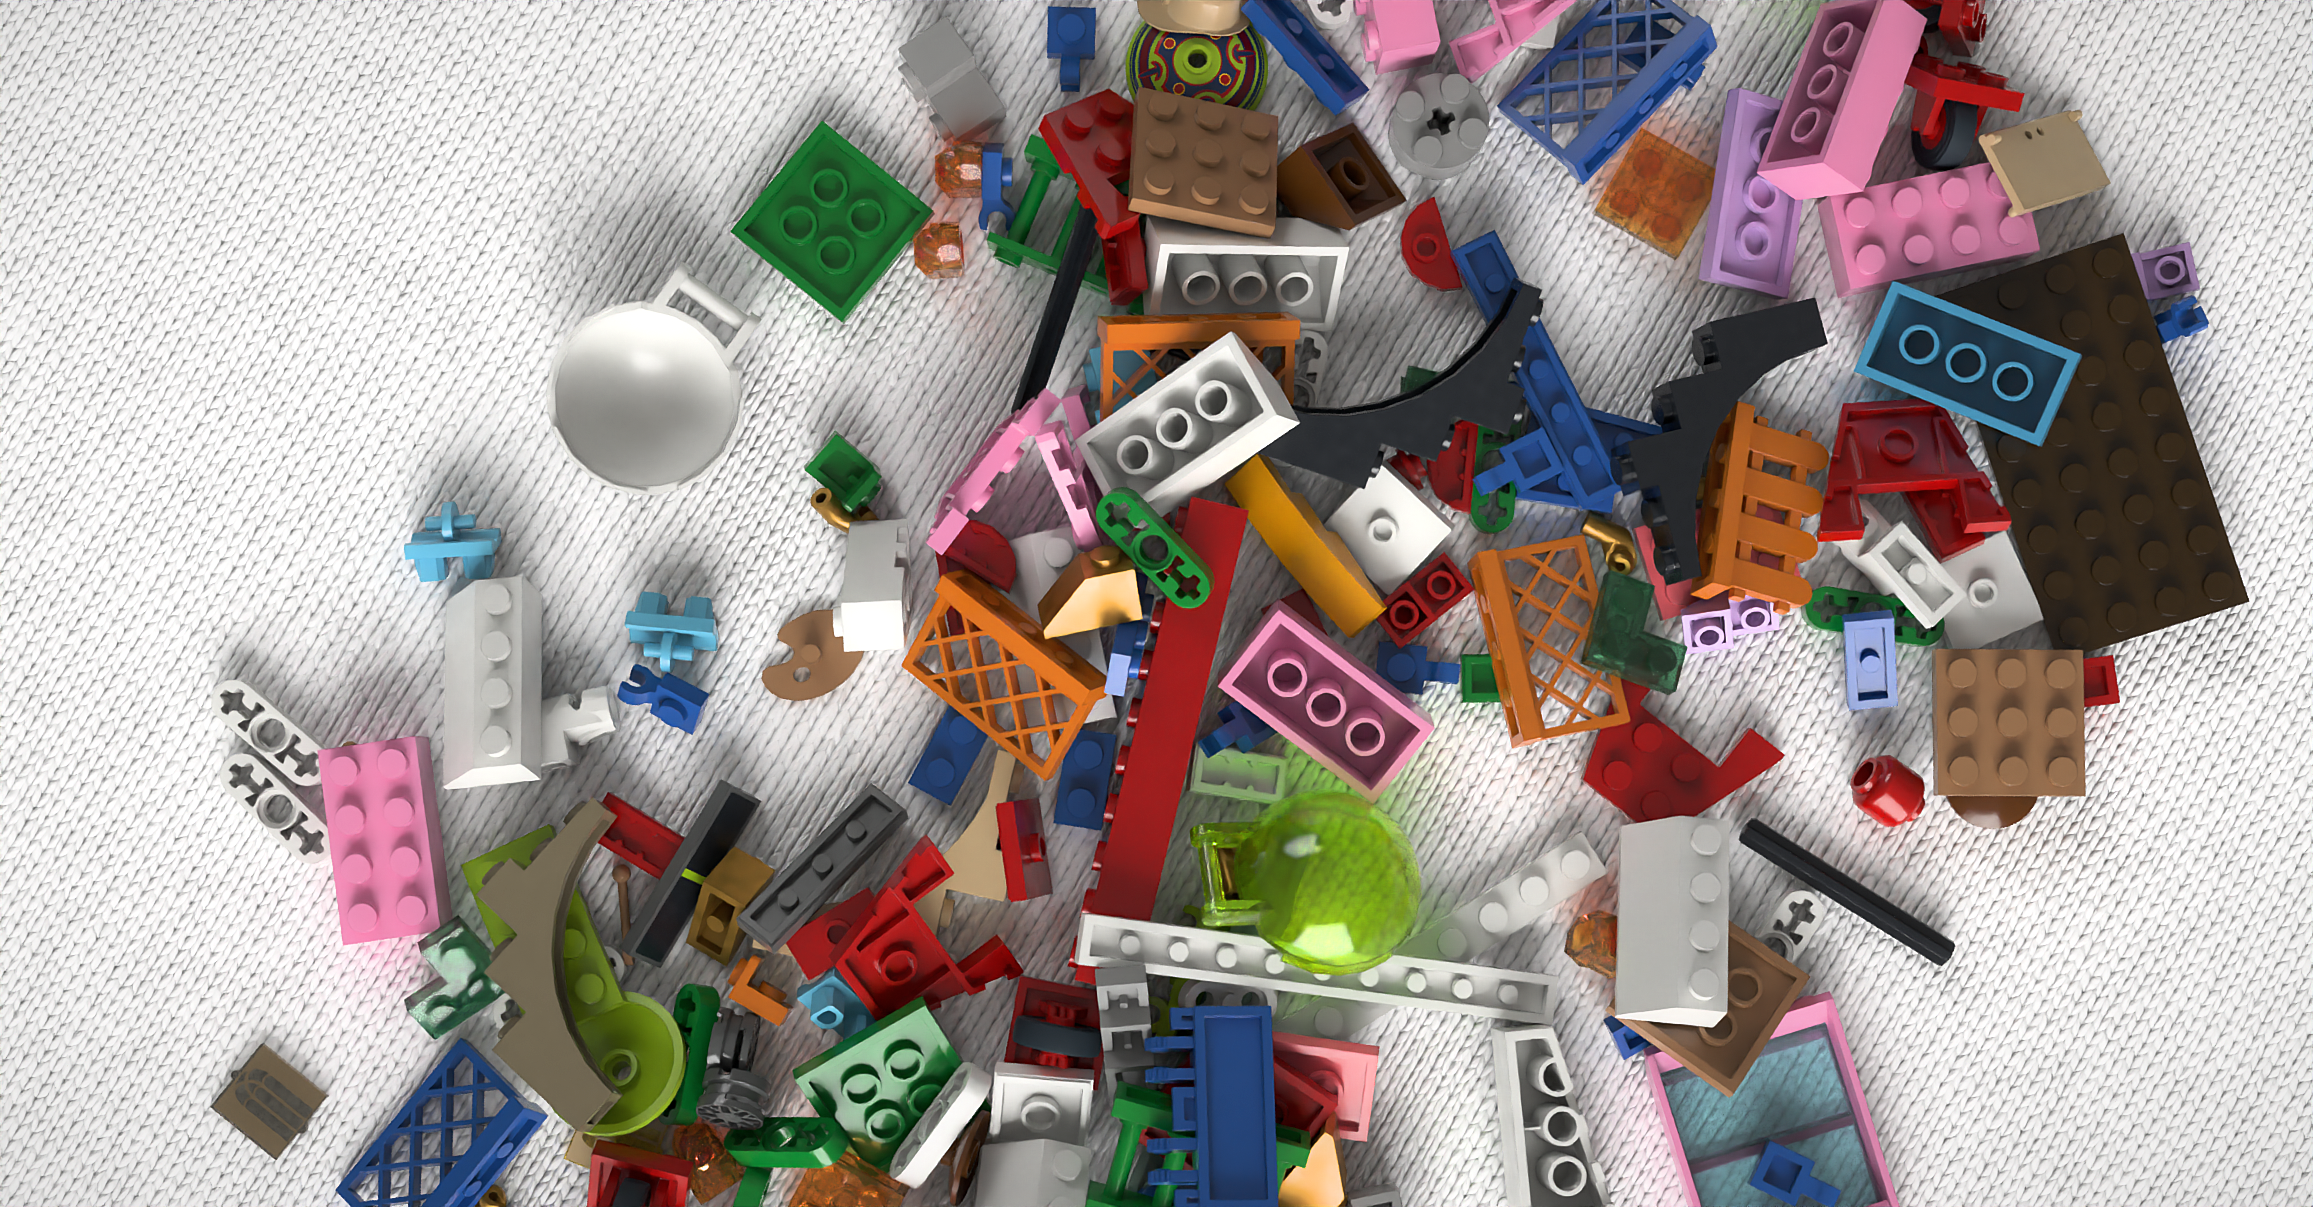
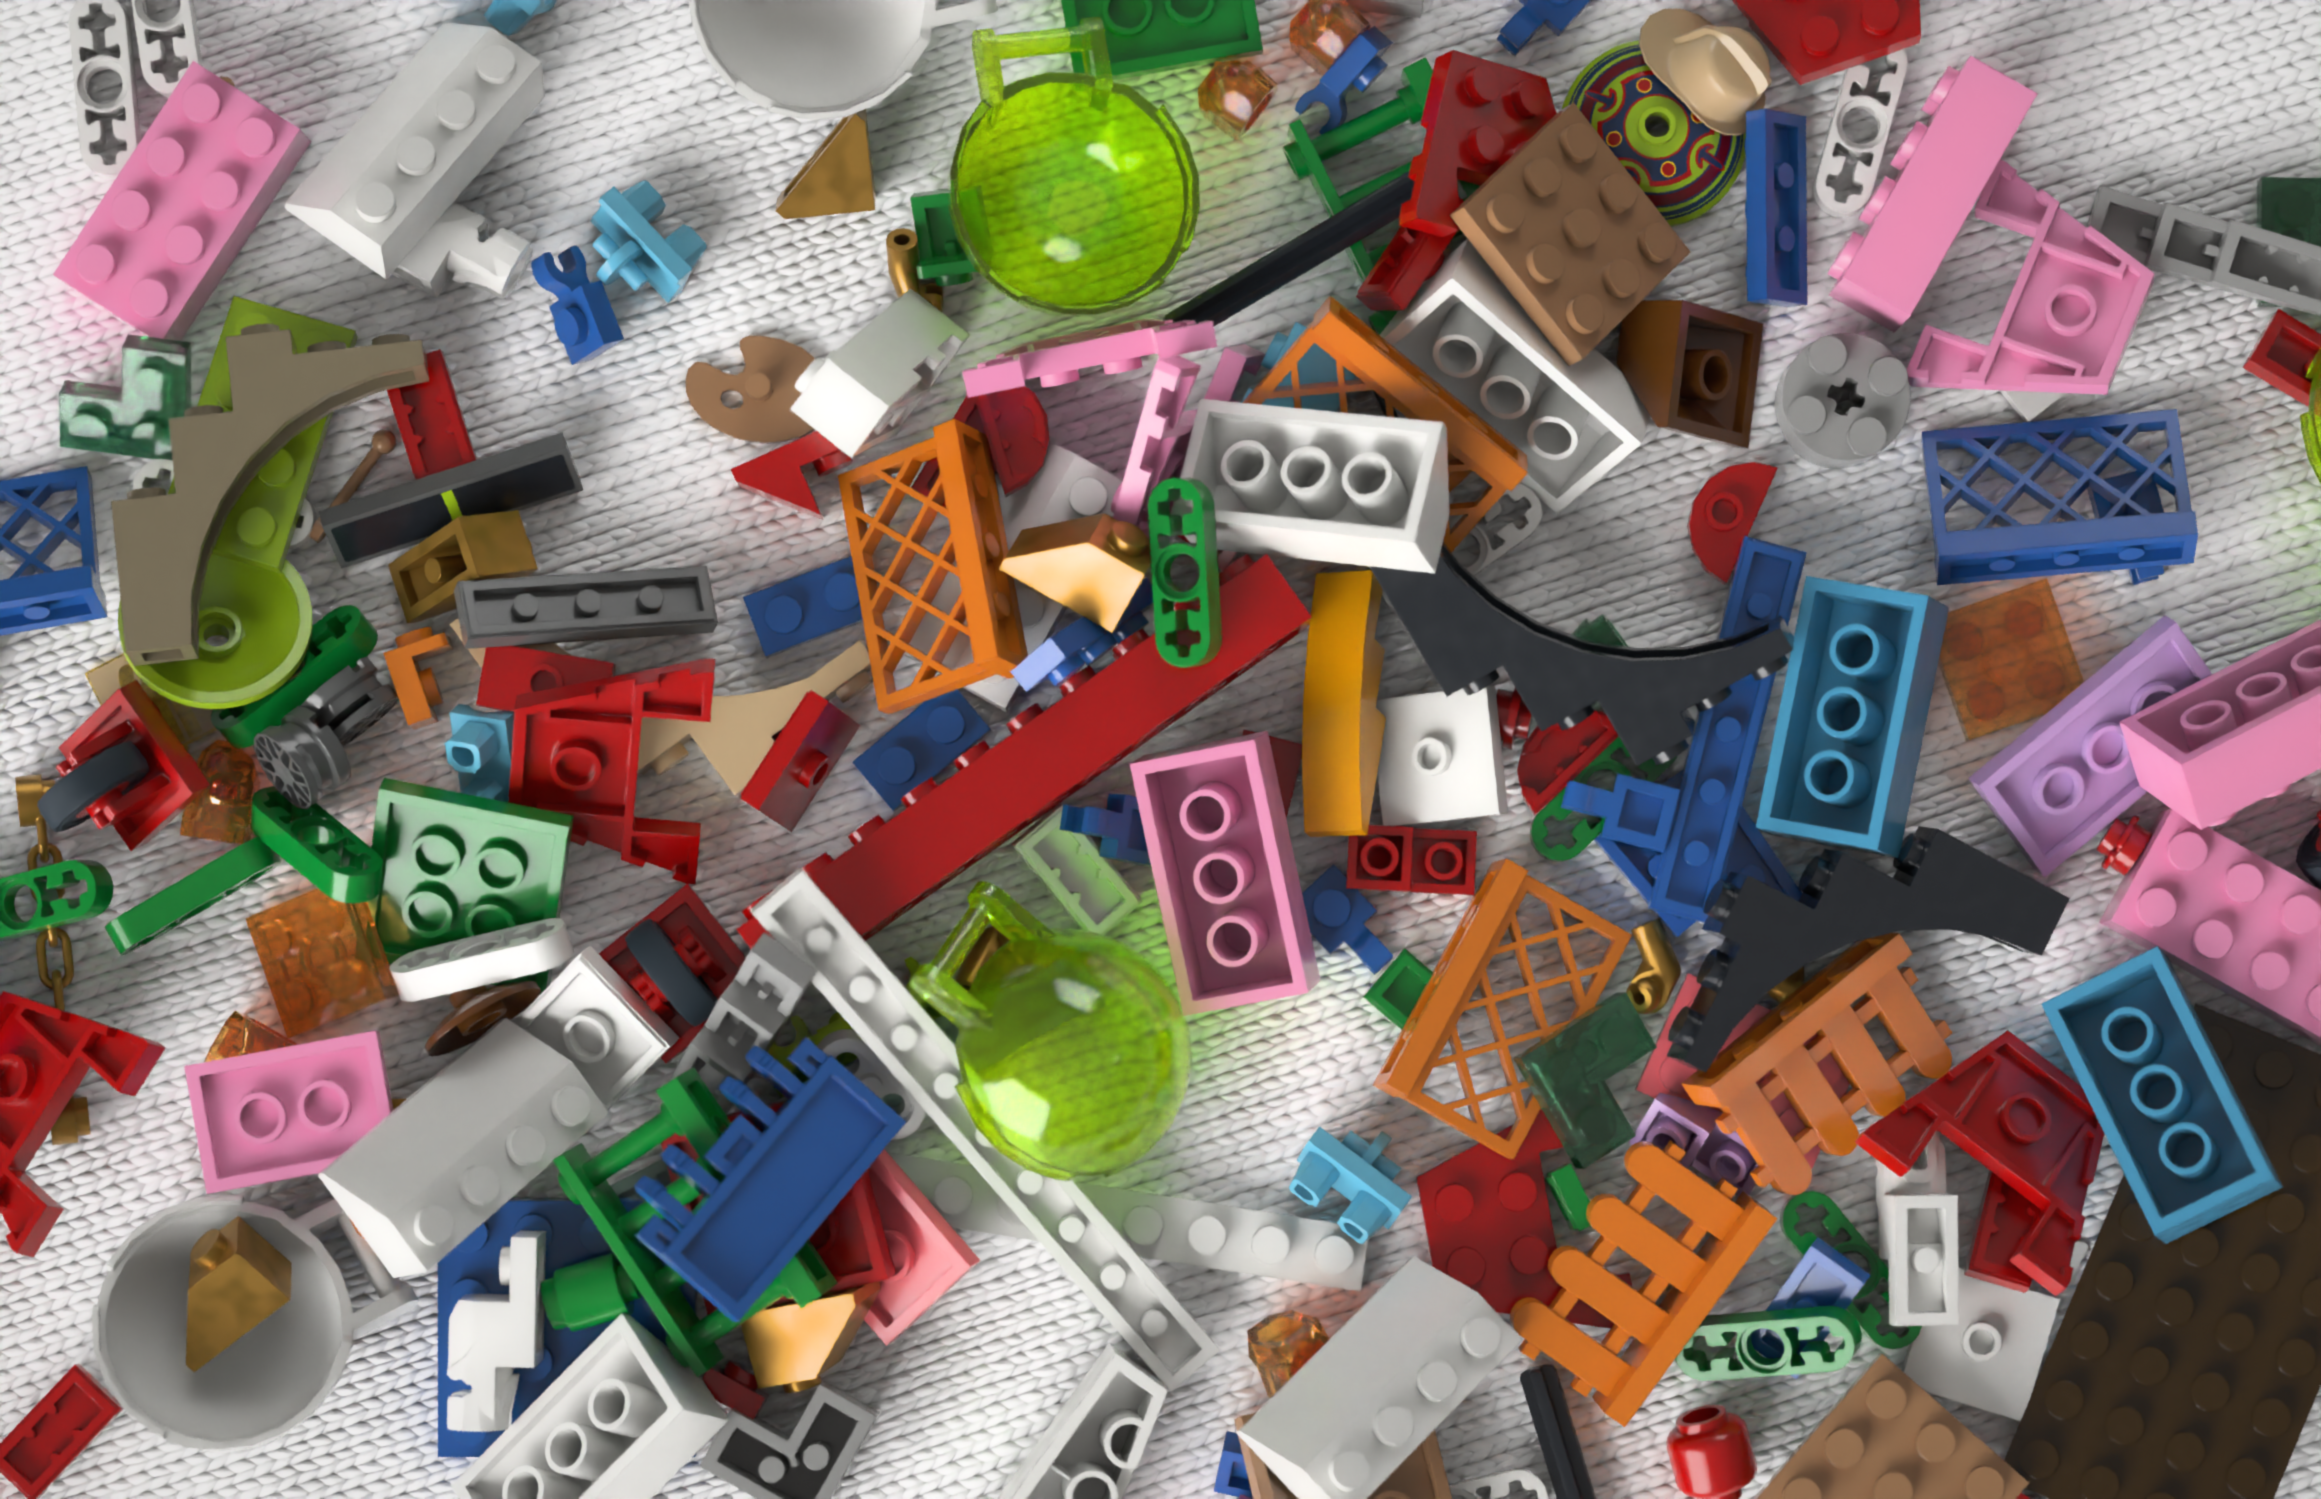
camera: 45 degrees right, 0 degrees up
(750, 495) = (836, 175): none -> pearl gold slope
(867, 692) = (781, 471): none -> red slope
(889, 380) = (1068, 181): none -> clear neon green windscreen
(1549, 806) = (1357, 1173): none -> medium azure hips
(1603, 300) = (1852, 716): none -> dark azure brick
(1681, 714) = (1569, 1196): none -> green tile
(1792, 725) = (1658, 1329): none -> orange fence
(1815, 241) = (2123, 844): none -> red plate
(1901, 686) = (1814, 1356): none -> beam

